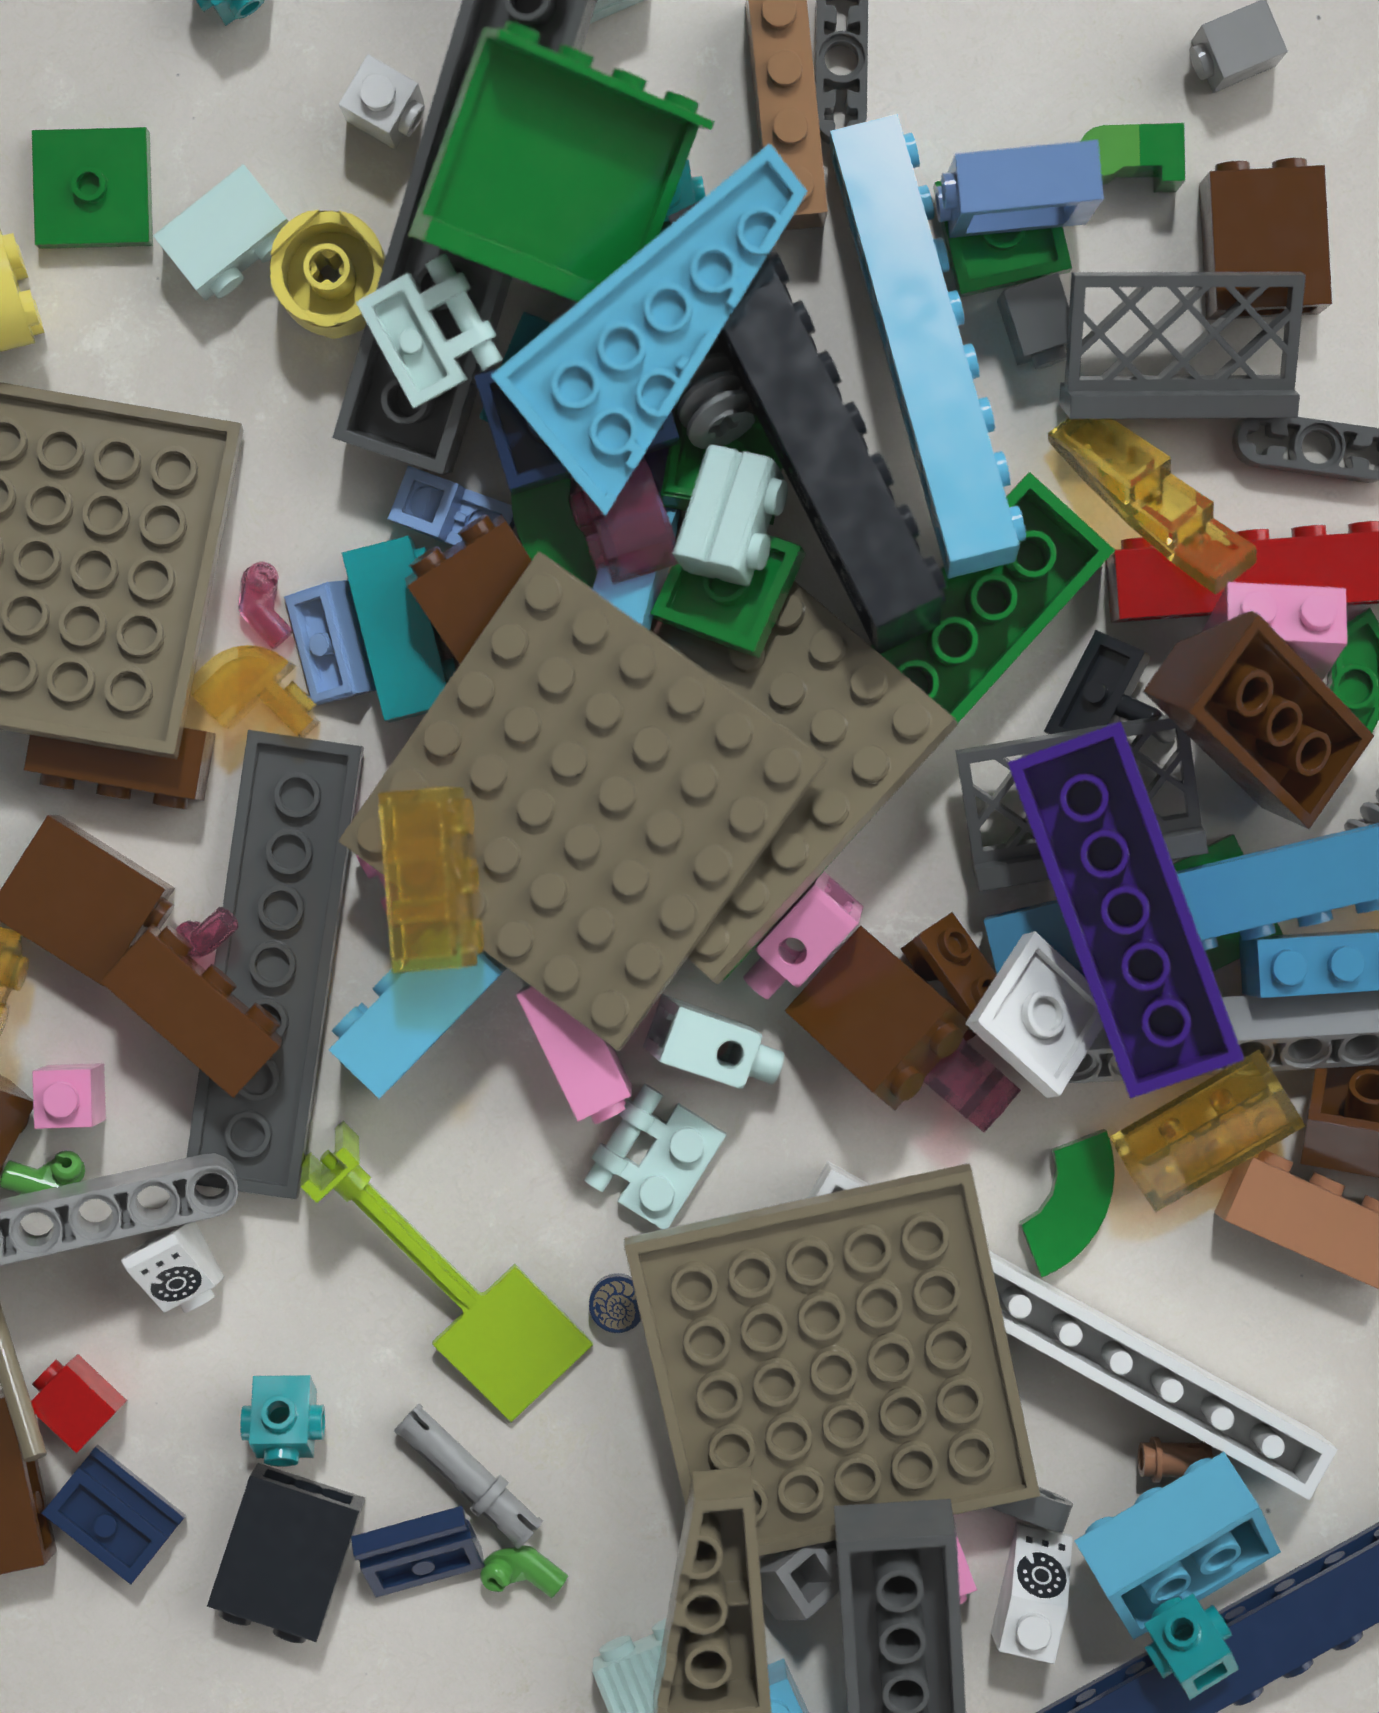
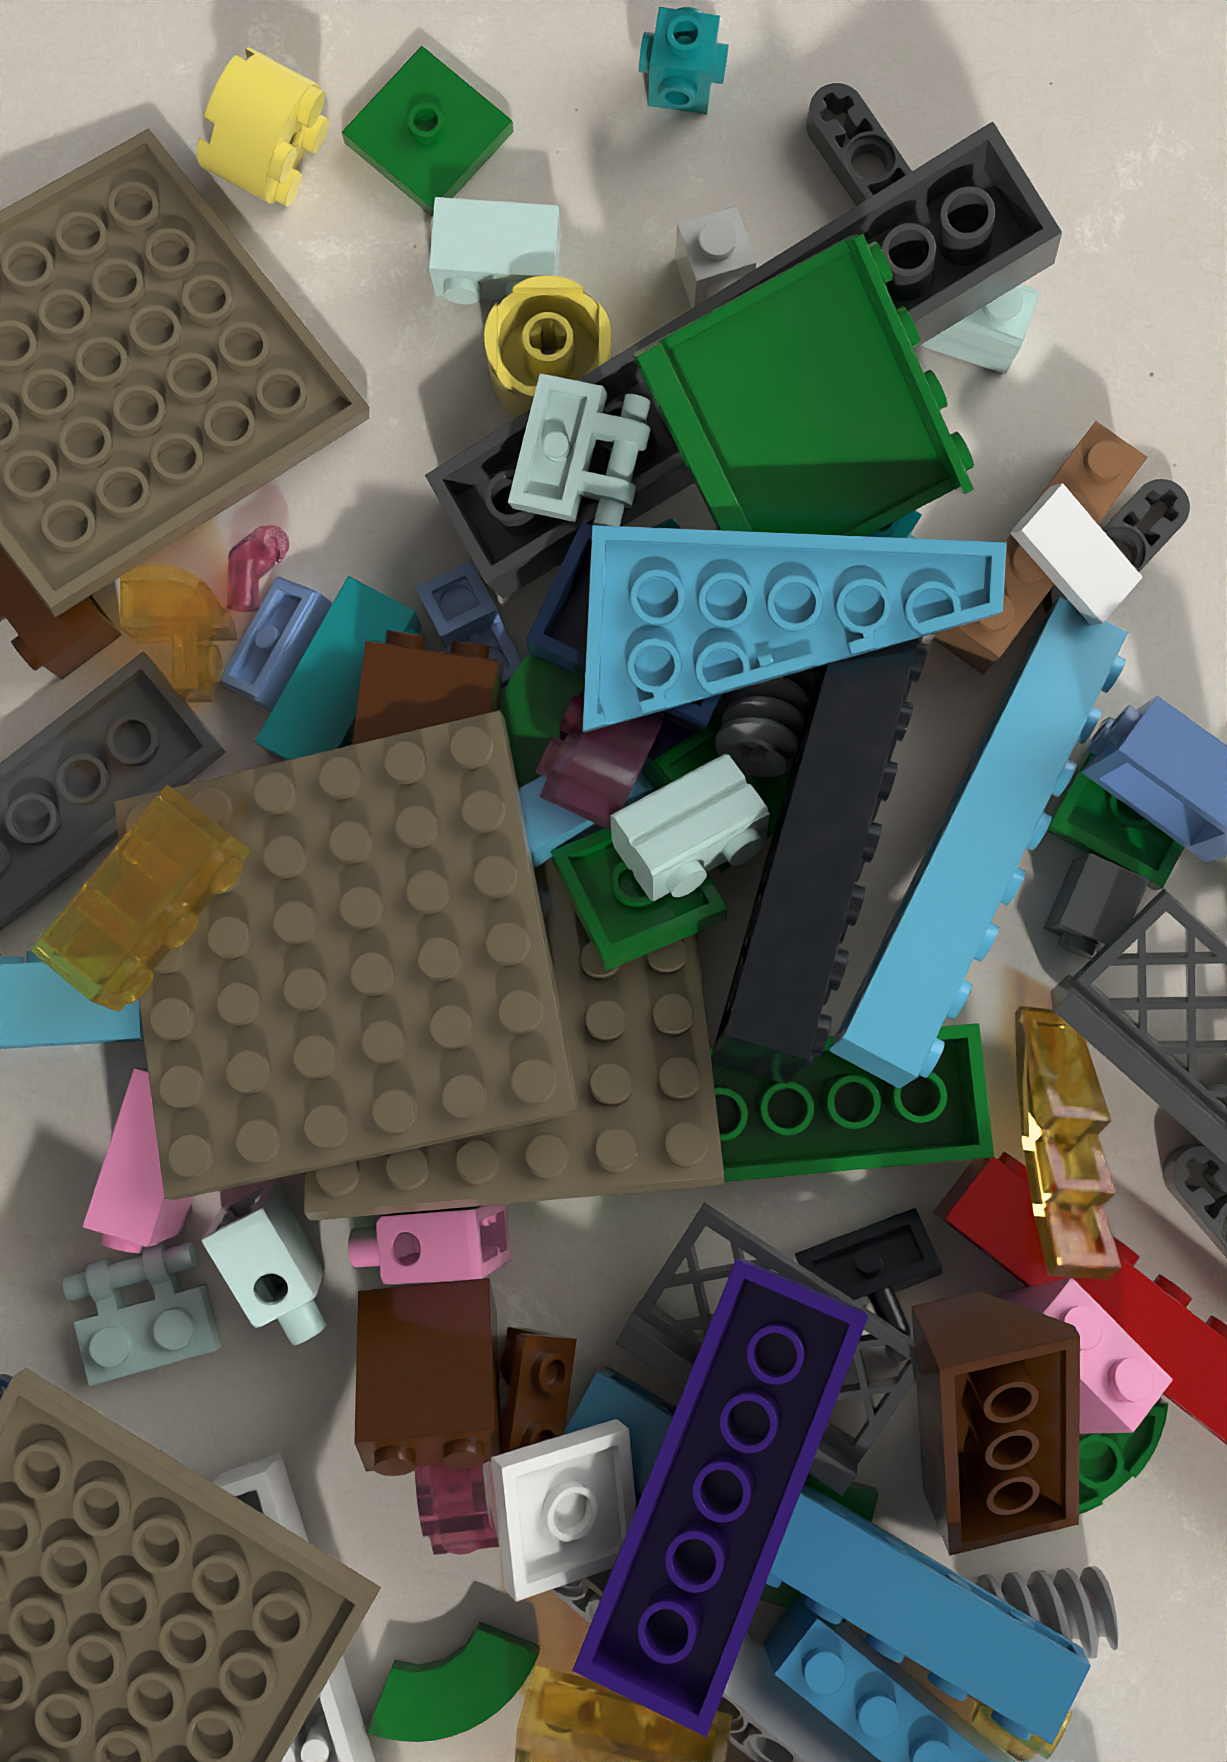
camera: 40 degrees right, 5 degrees down
(817, 96) = (1076, 554): none -> white tile

